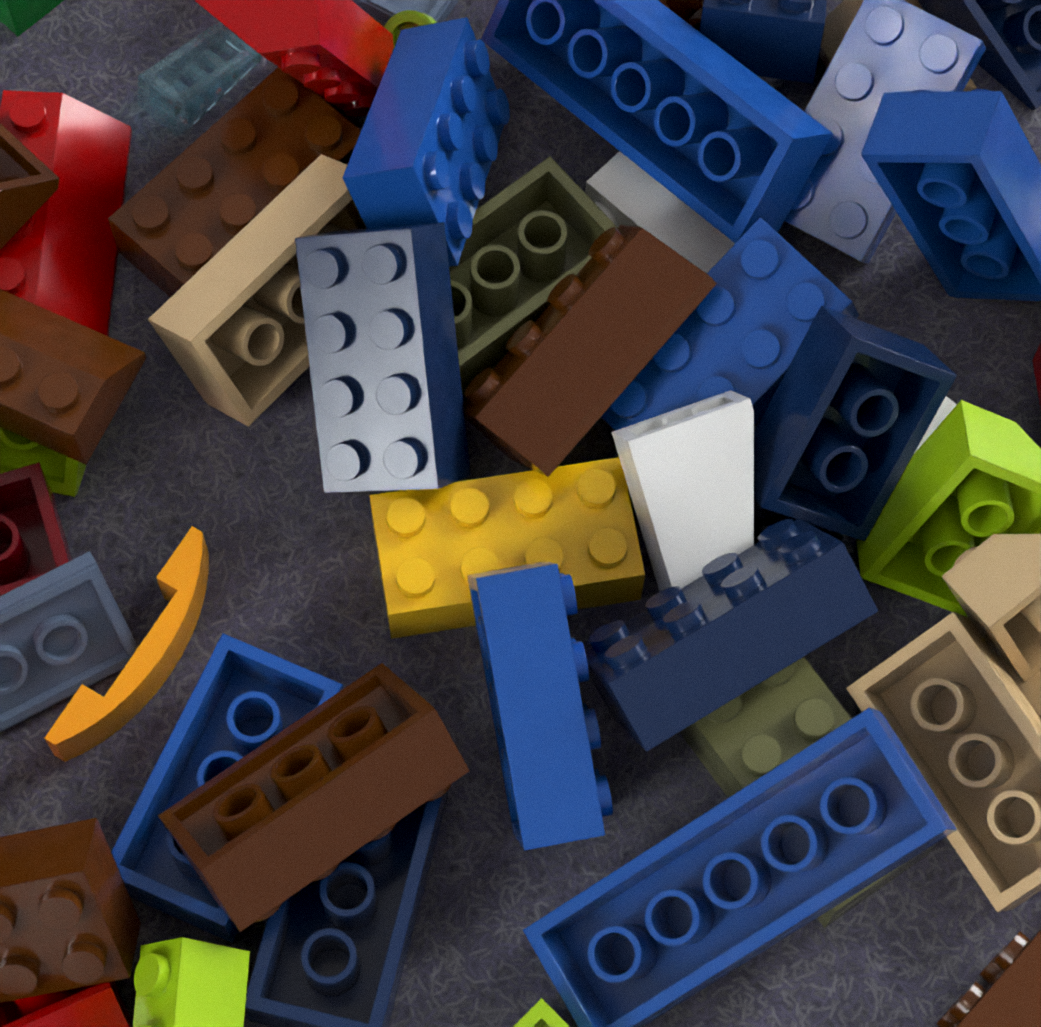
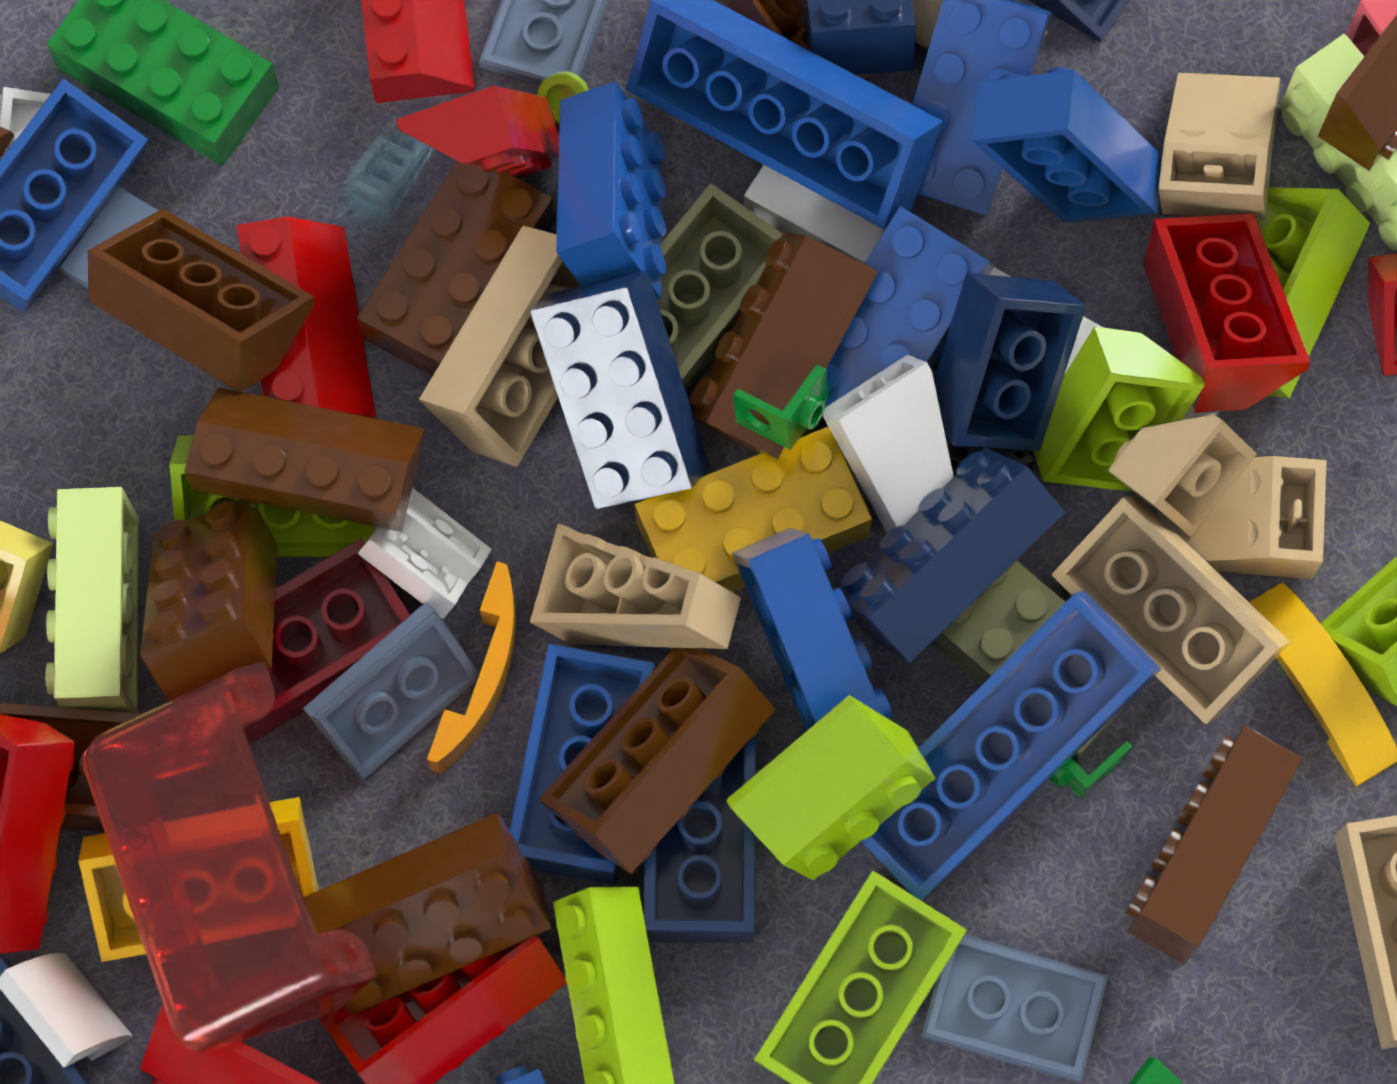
camera: 10 degrees left, 5 degrees up
(116, 502) = (429, 557): none -> white slope
(330, 602) = (627, 599): none -> tan wedge
(514, 882) = (832, 787): none -> lime slope
(580, 428) = (787, 425): none -> green bracket
(827, 948) = (1079, 781): none -> green bracket

